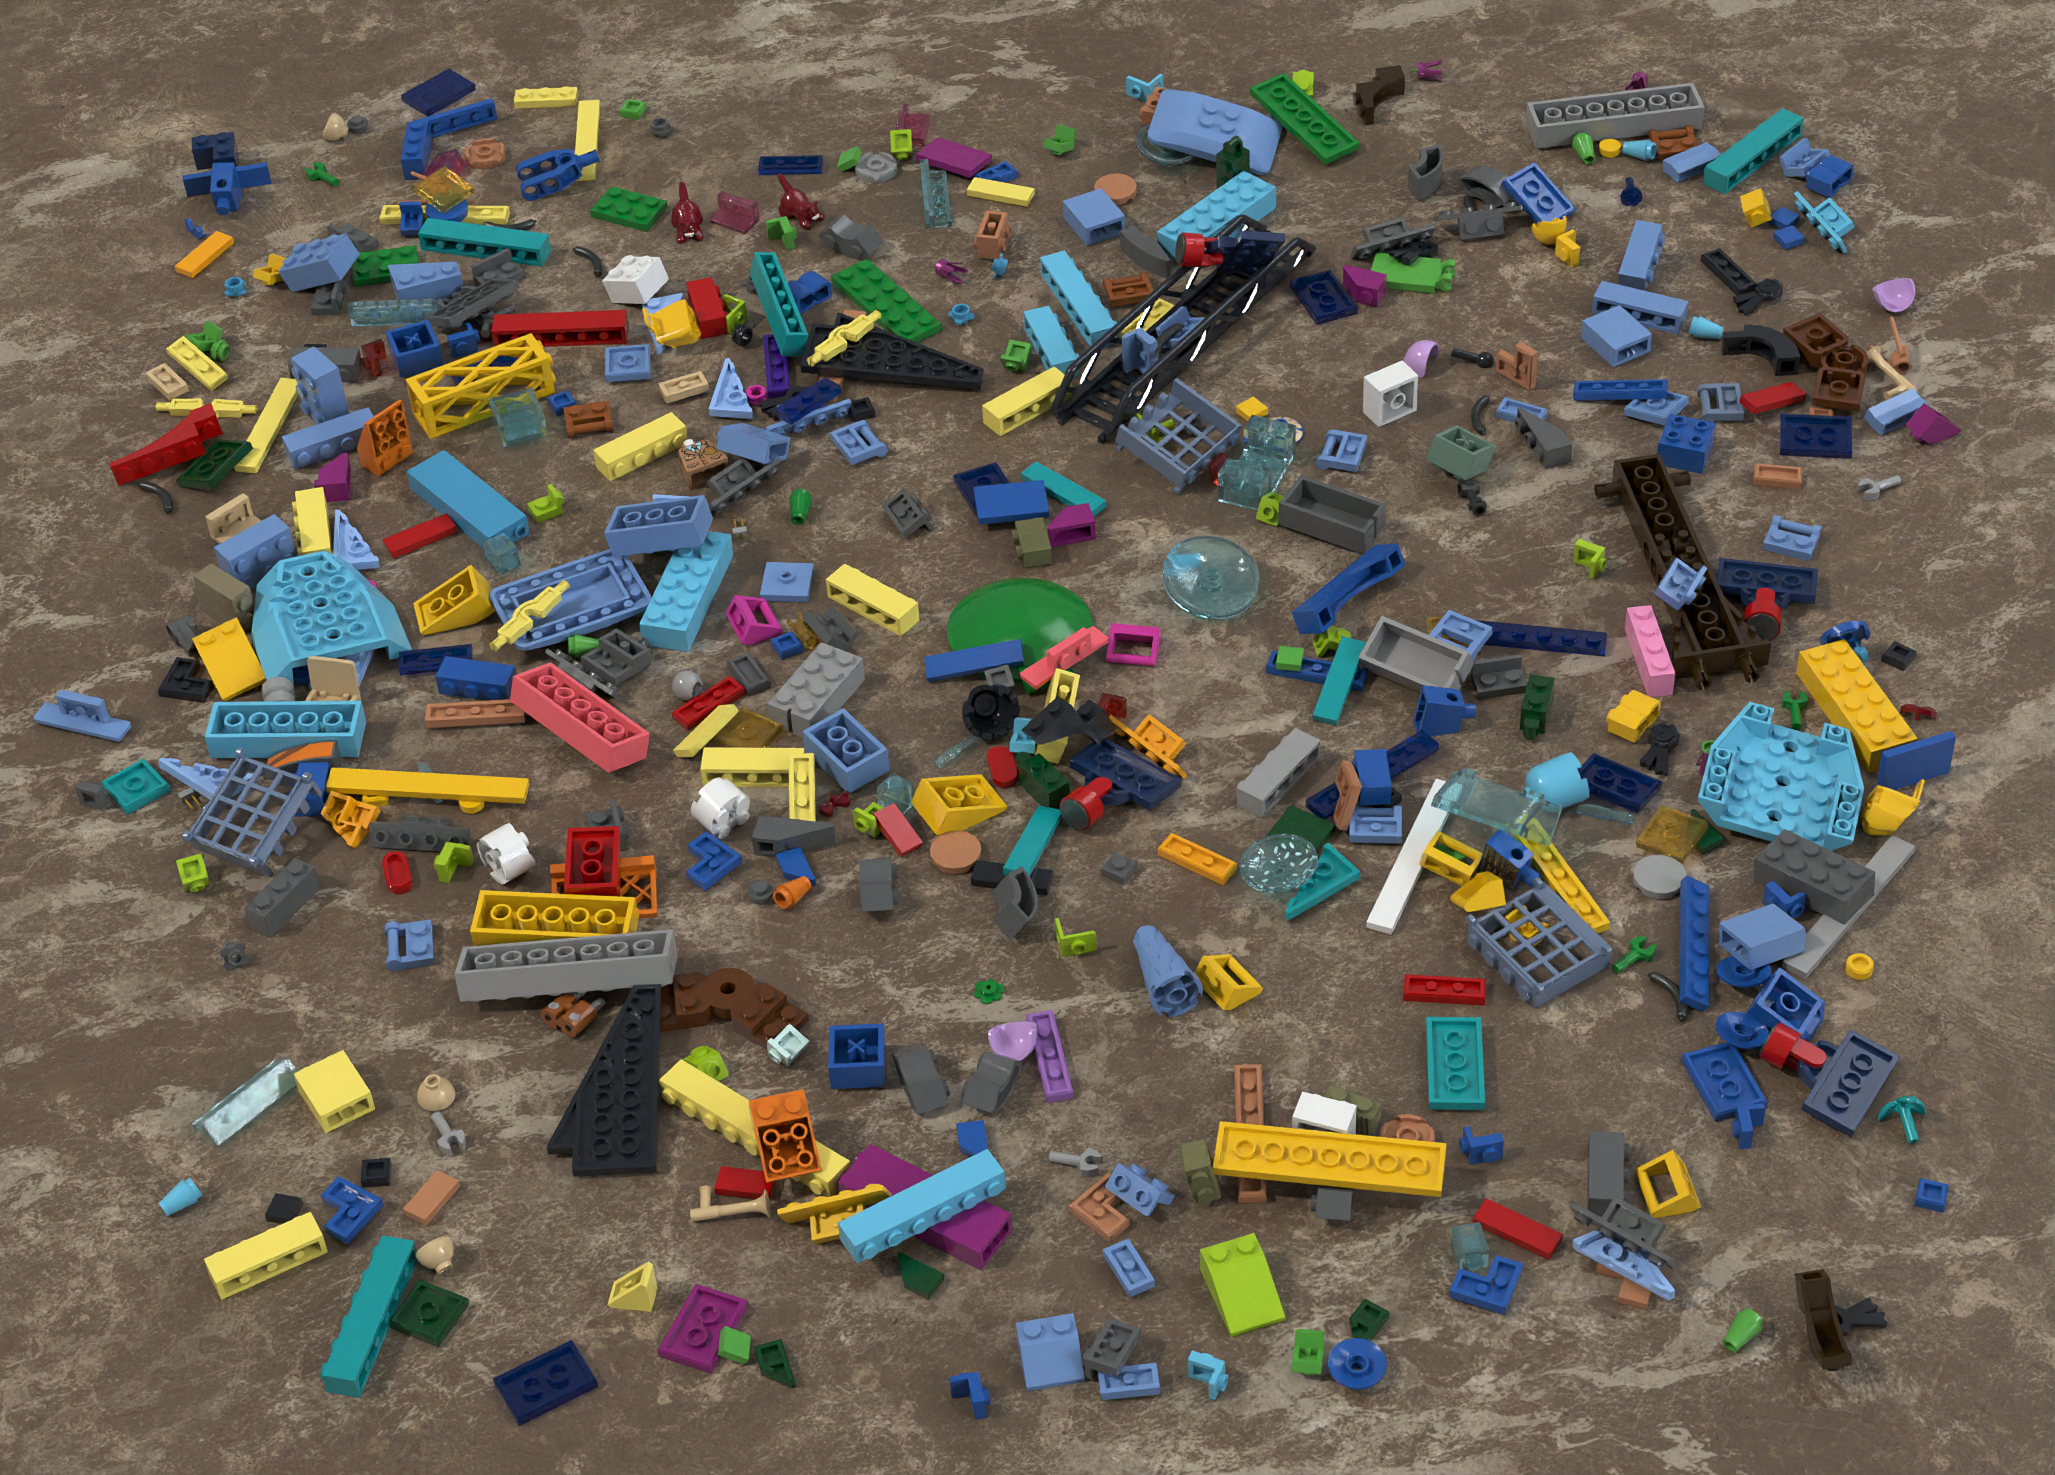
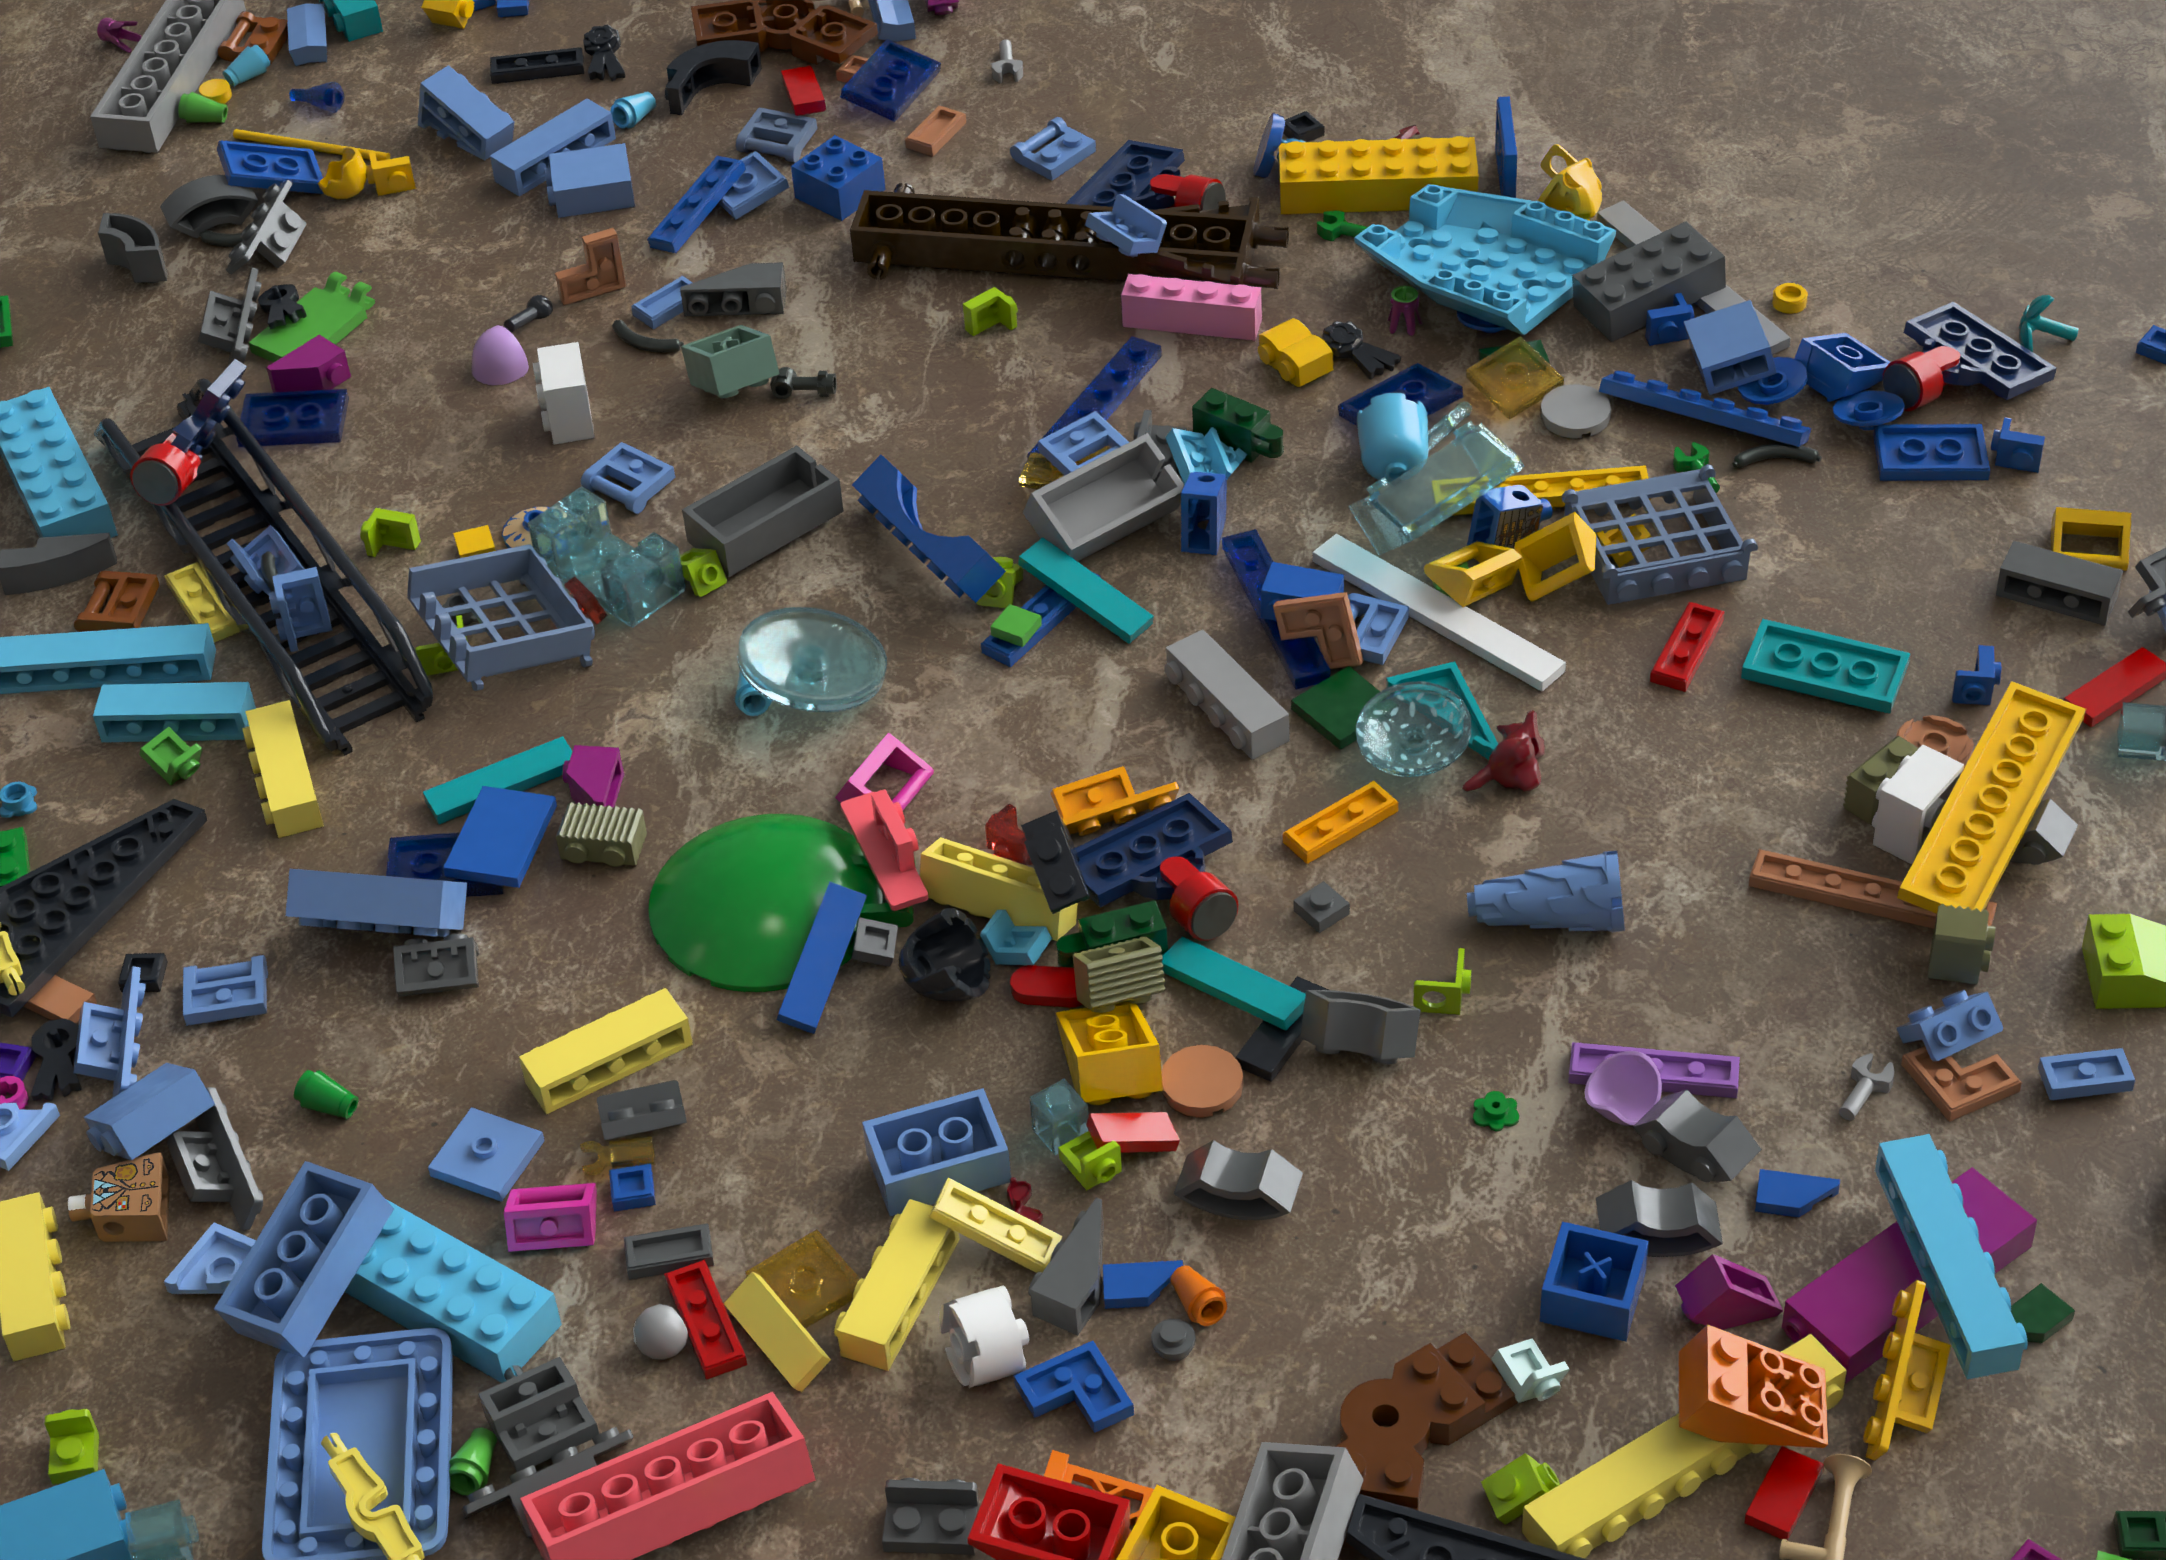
camera: 70 degrees left, 0 degrees up
(808, 400) = (104, 1015): clear blue plate -> none
(817, 688) = (775, 1162): light grey piece -> none
(876, 1123) = (1726, 1295): none -> magenta slope
(931, 468) = (387, 901): none -> medium blue brick
(953, 751) = (987, 1031): clear light blue piece -> none
(1008, 785) = (1118, 974): none -> olive brick
(1221, 986) = (1593, 838): yellow tile -> none
(1237, 365) = (389, 529): none -> lime bracket
(1283, 922) = (1514, 758): none -> dark red animal
(1498, 701) = (1202, 453): none -> medium azure slope
(1583, 206) = (300, 143): none -> yellow axle

